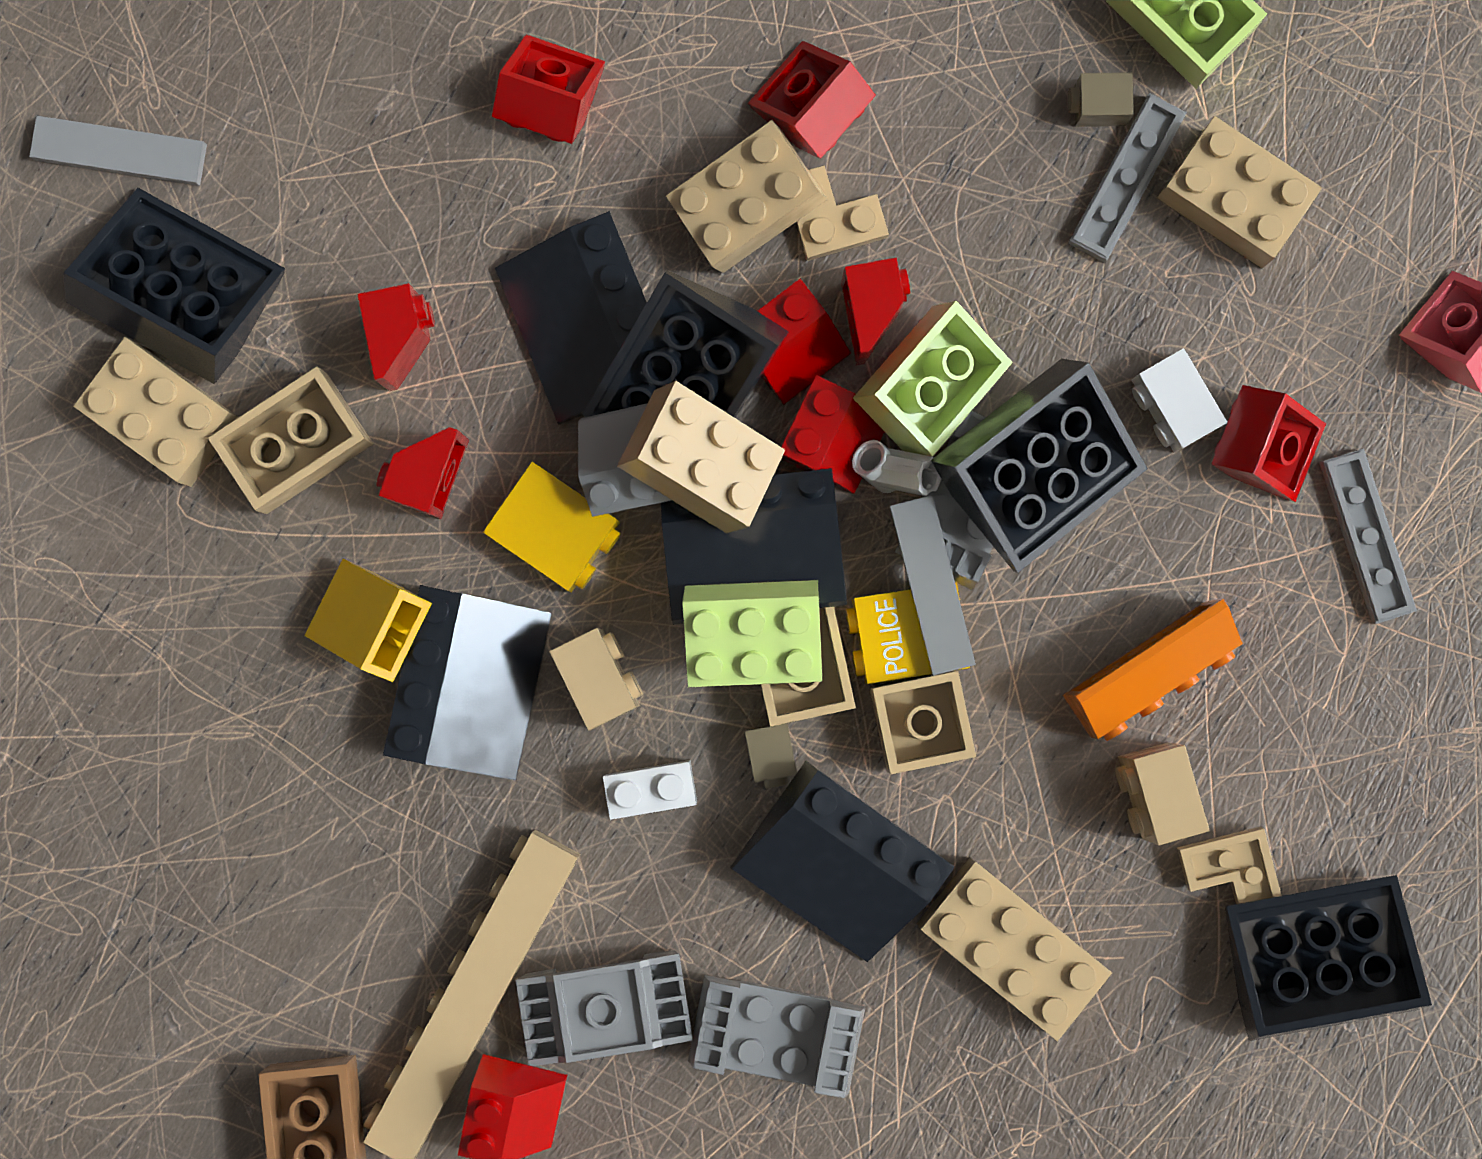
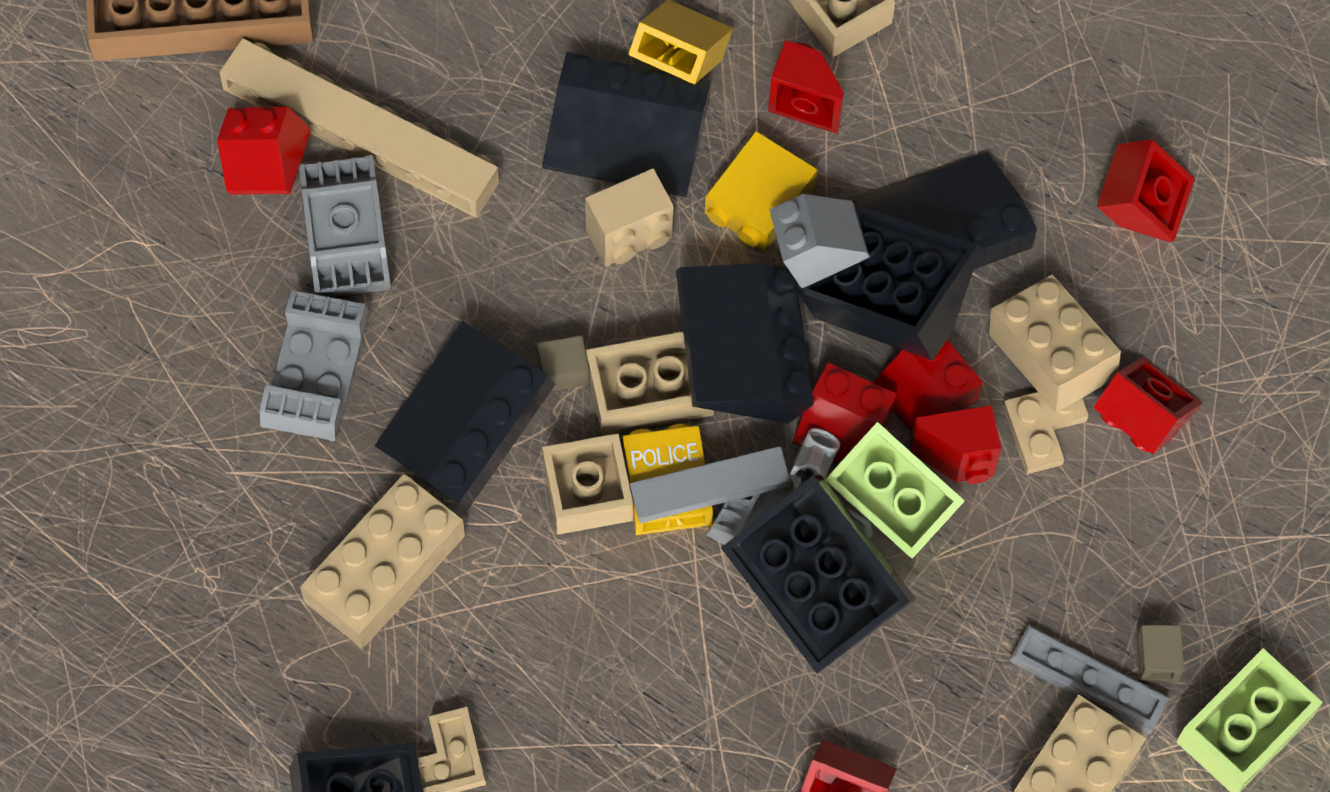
camera: 85 degrees right, 20 degrees down
(395, 331) = (924, 64): red slope -> none
(650, 789) = (532, 265): white brick -> none
(701, 457) = (819, 276): brick -> none
(752, 633) = (667, 323): yellowish green brick -> none
(1154, 669) = (632, 682): orange slope -> none
(1162, 793) = (520, 683): tan brick -> none
(1177, 401) = (880, 713): white brick -> none

